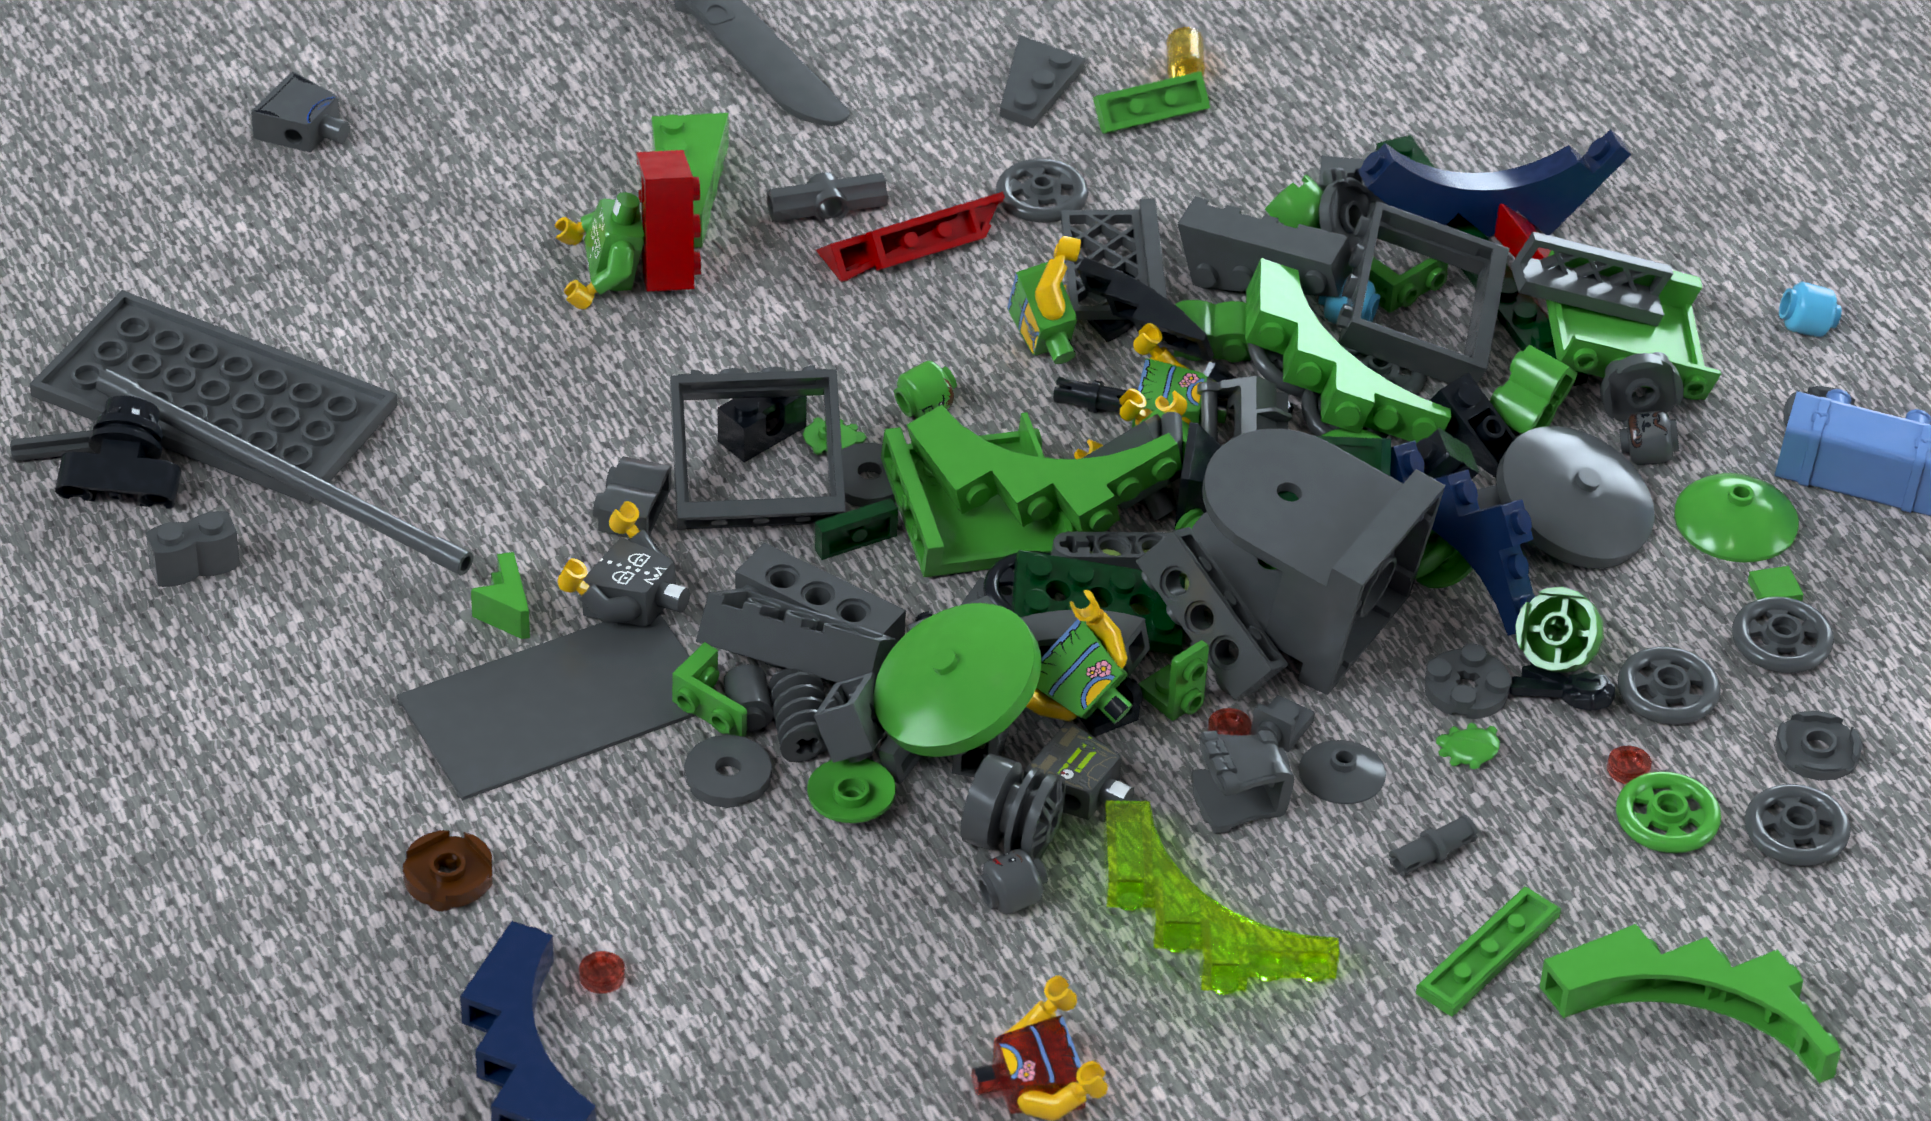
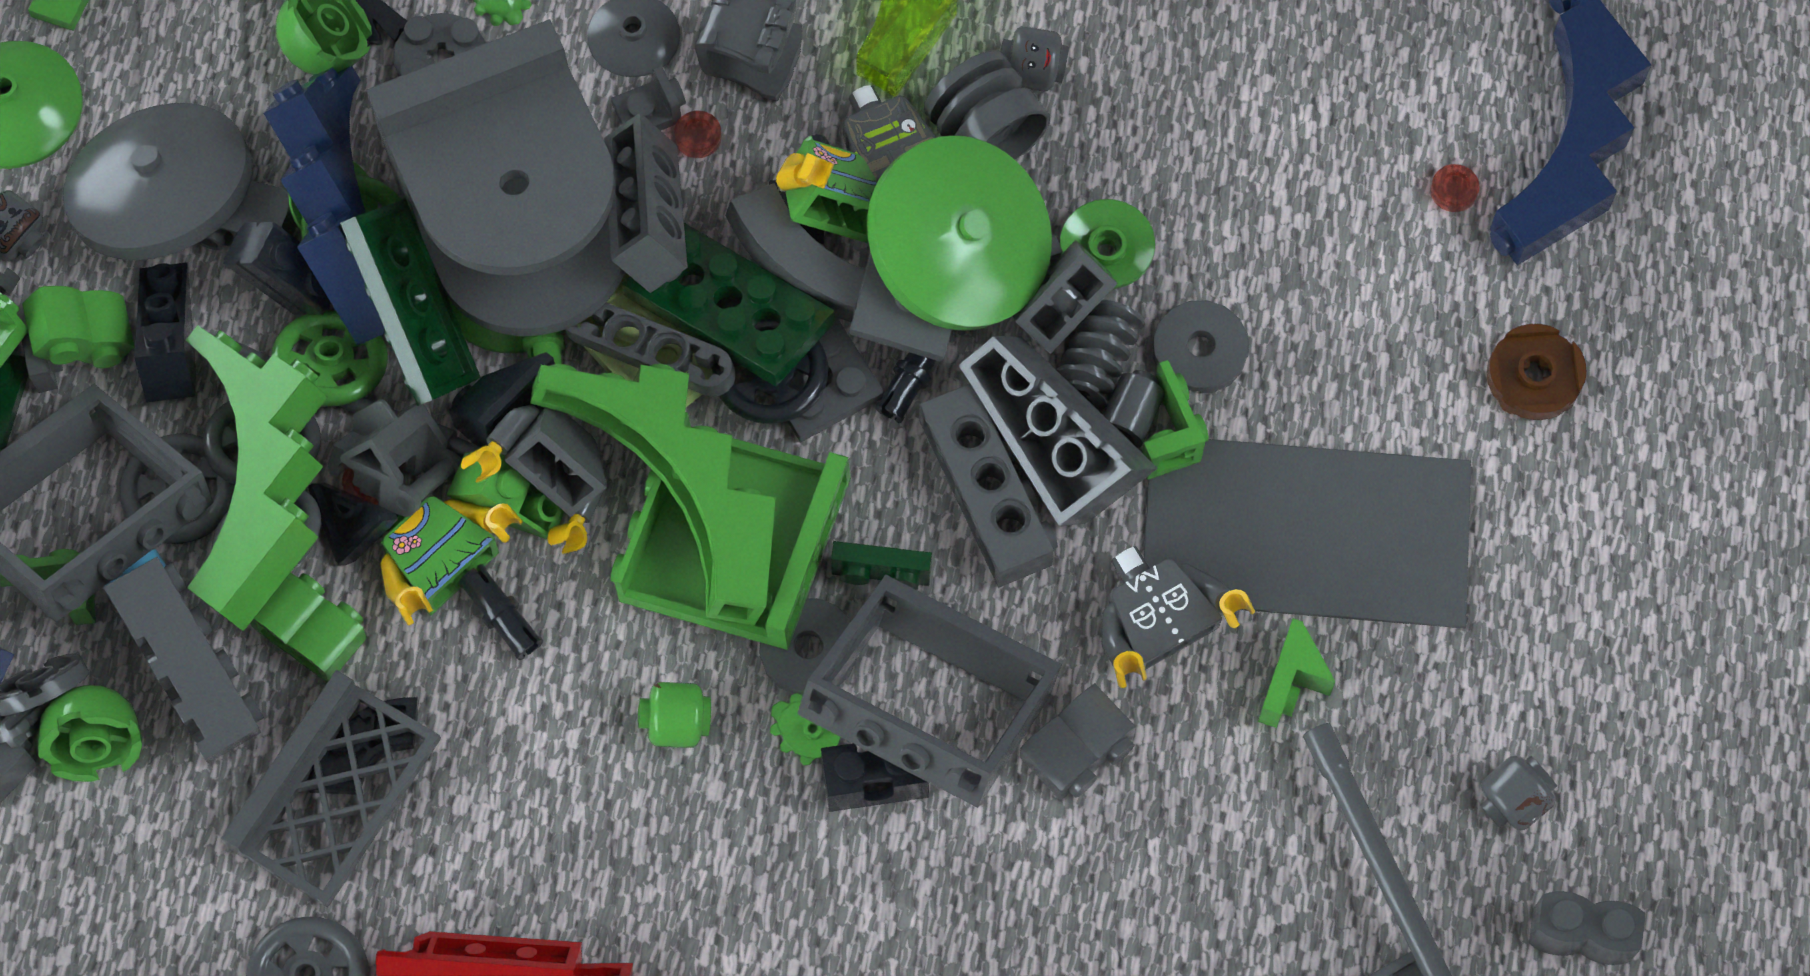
camera: 145 degrees left, 25 degrees up
(292, 604) = (1518, 792): none -> dark grey head
(1043, 306) = (477, 733): torso -> none
(1144, 305) = (375, 640): black slope -> none
(1181, 685) = (716, 180): bright green bracket -> none

